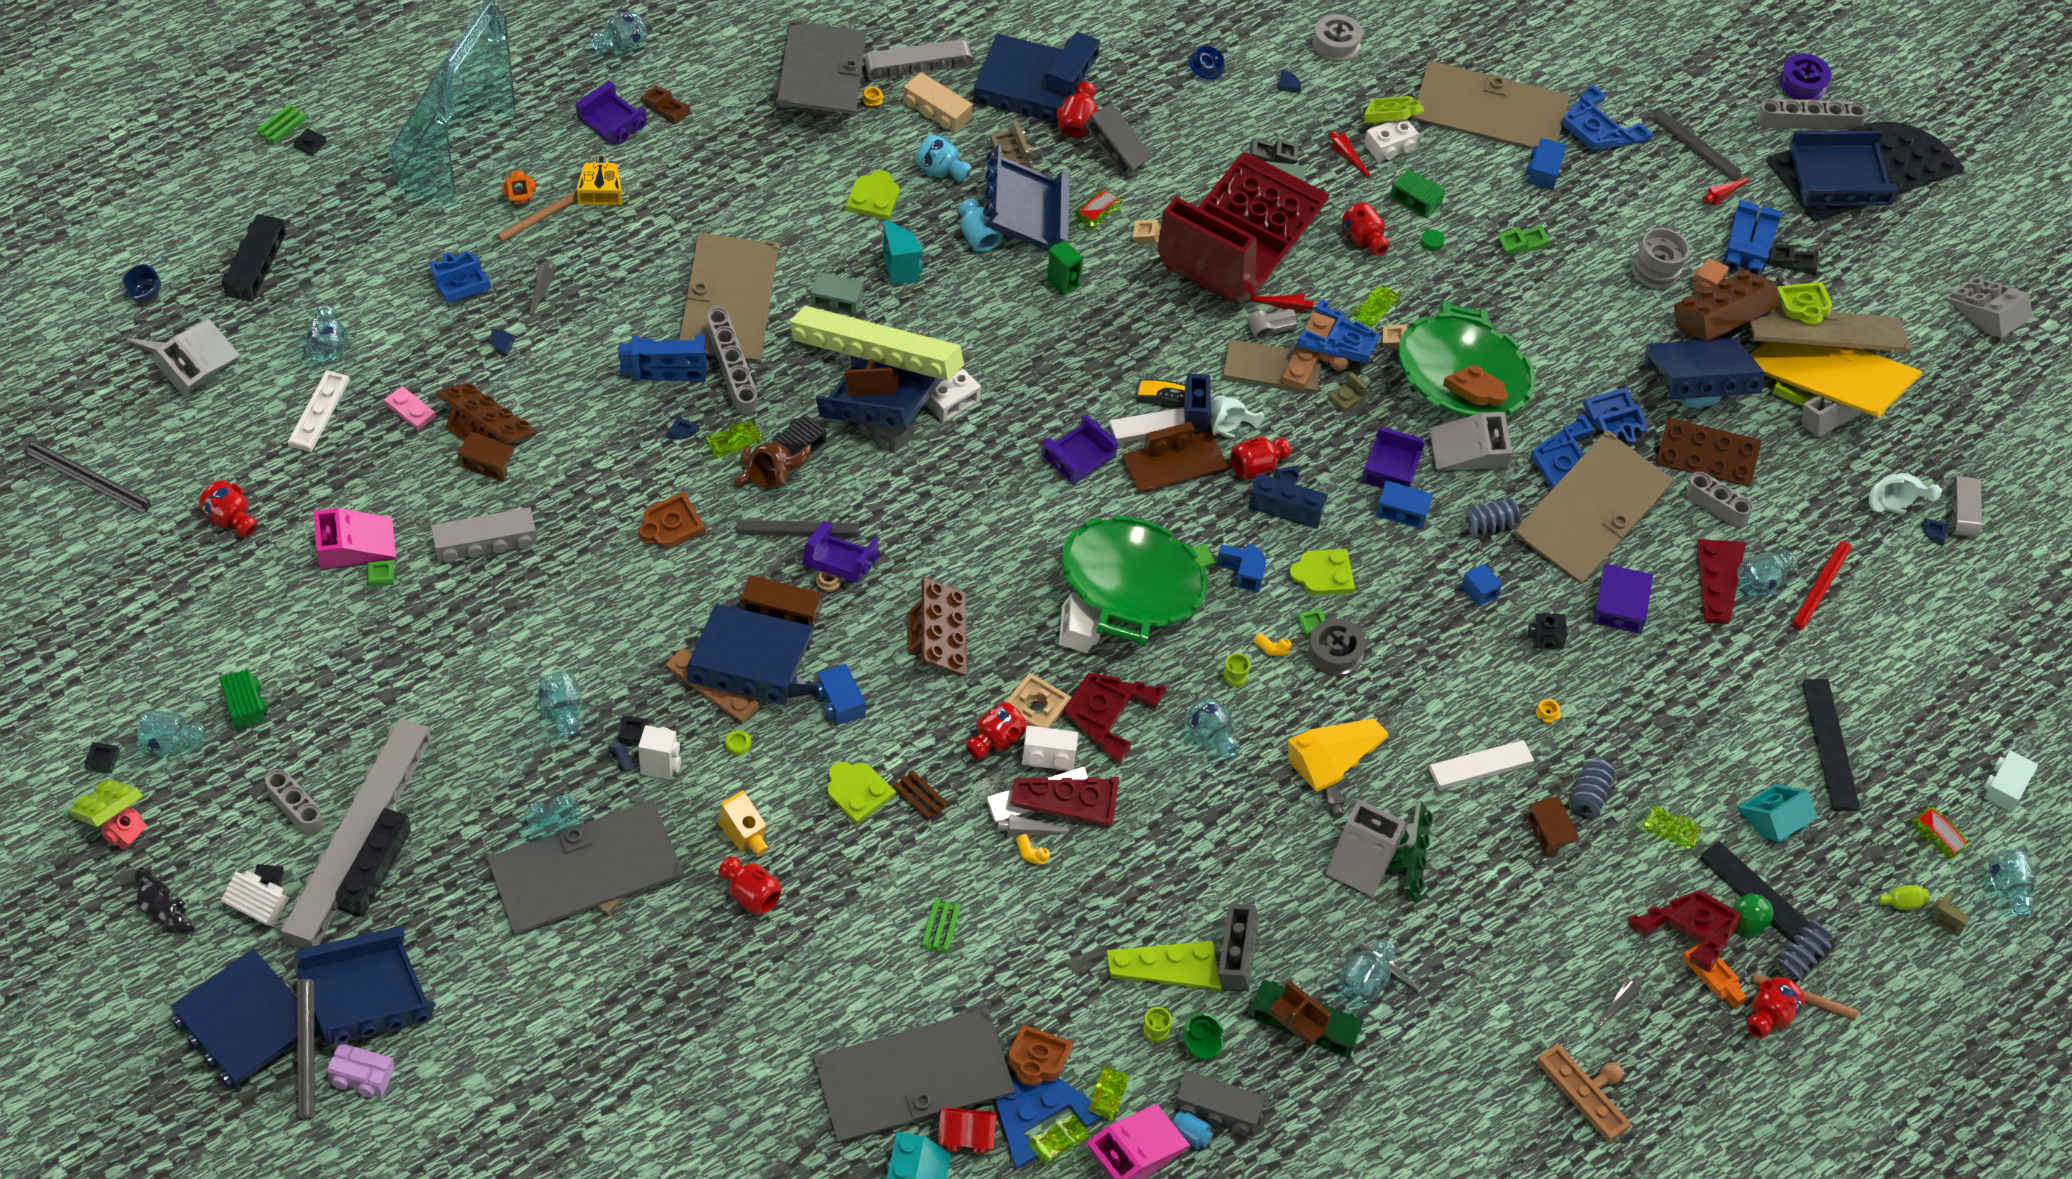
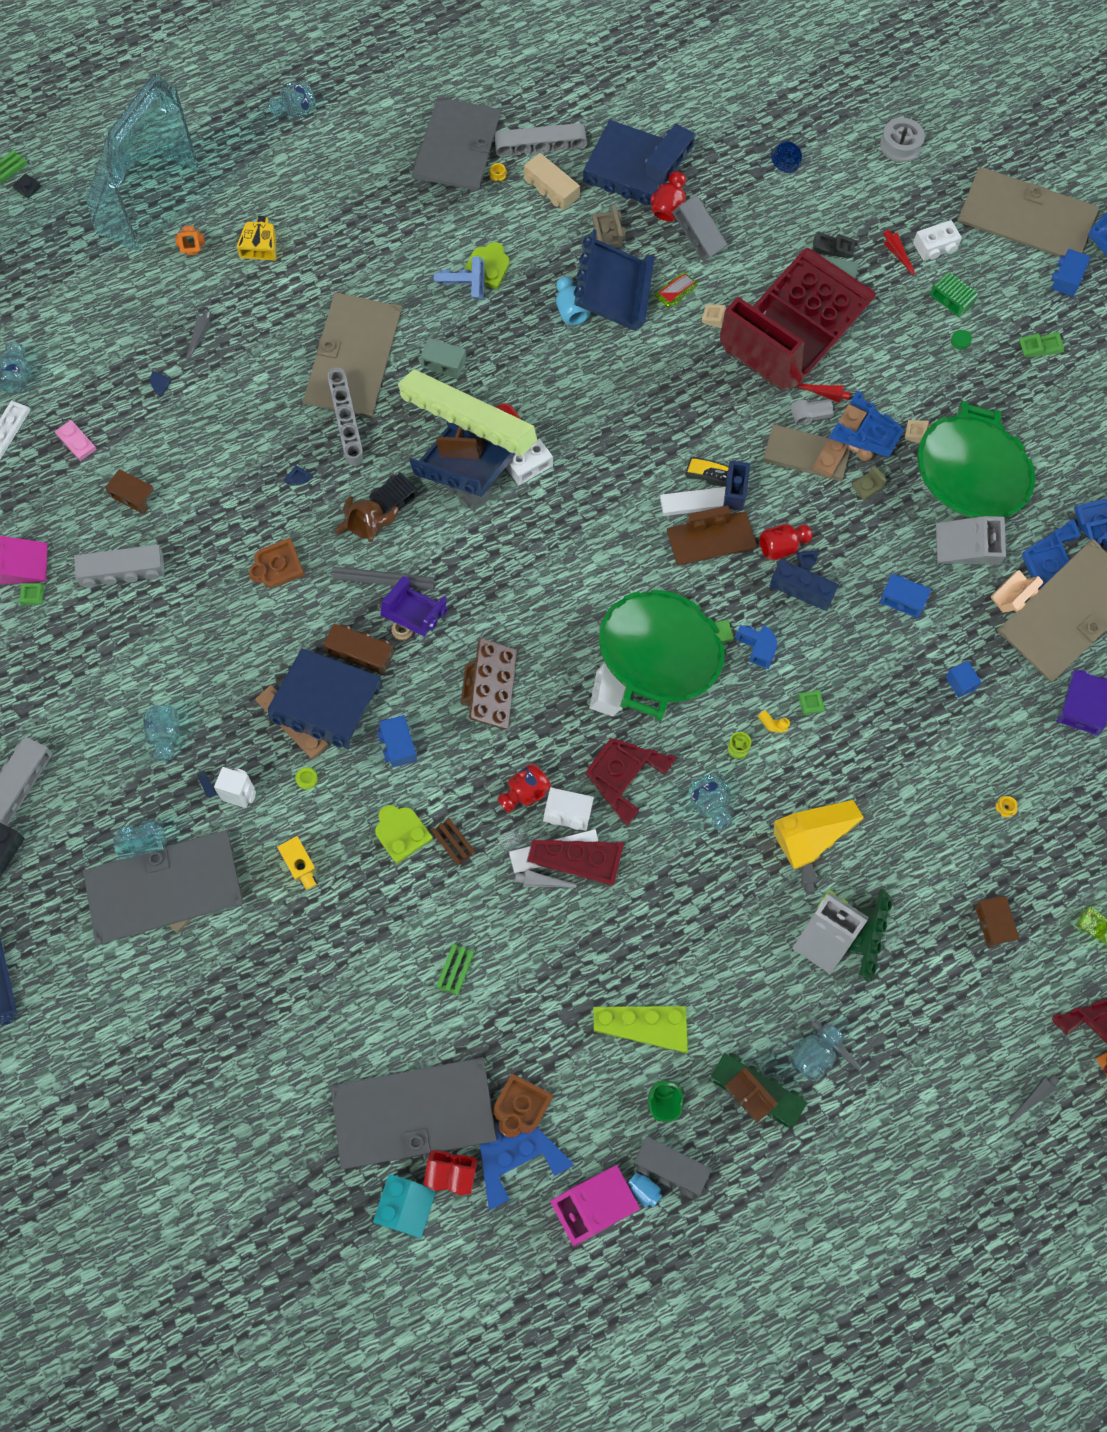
camera: 10 degrees right, 15 degrees up
(459, 276) = (130, 320): blue plate -> none
(481, 414) = (133, 452): reddish brown bracket -> none
(536, 217) = (203, 268): medium nougat bar -> none
(610, 114) = (276, 175): dark purple panel -> none
(631, 730) = (217, 759): black plate -> none
(662, 102) = (323, 169): reddish brown slope -> none
(664, 359) = (289, 412): blue hips -> none
(735, 439) = (345, 486): clear neon green slope -> none
(750, 885) = (297, 919): red piece -> none
(800, 688) = (362, 731): dark blue tile -> none
(851, 207) = (475, 278): none -> medium blue bracket
(901, 254) = (502, 325): teal slope -> none
(940, 157) = (546, 234): medium azure piece -> none
(1035, 856) = (540, 907): yellow arm -> none
(1036, 689) = (558, 749): tan piece -> none
(1059, 1139) = (529, 1186): clear neon green slope -> none
(1064, 268) = (639, 347): green brick -> none
(1080, 450) = (631, 522): dark purple panel -> none
(1108, 1092) = (577, 1146): clear neon green slope -> none
(1157, 1024) = (627, 1081): lime wheel -> none
(1228, 414) = (762, 497): light aqua piece -> none
(1238, 947) = (706, 1018): dark grey brick -> none
(1289, 82) = (855, 179): dark blue tile -> none
(1324, 572) = (827, 654): lime plate -> none
(1333, 657) = (836, 719): dark grey wheel -> none
(1365, 228) = (904, 325): red piece -> none
(1378, 304) = (905, 399): clear neon green slope -> none
(1392, 109) = (941, 212): lime plate -> none
(1393, 458) = (900, 550): dark purple panel -> none
(1477, 386) = (983, 487): dark orange plate -> none
(1481, 764) = (941, 853): white tile -> none
(1491, 515) = (981, 613): sand blue piece -> none
(1529, 490) = (1016, 591): none -> light nougat bracket
(1548, 631) = (1016, 730): black brick -> none
(1585, 1092) = (994, 1185): medium nougat plate -> none
(1592, 788) = (1034, 886): sand blue piece -> none

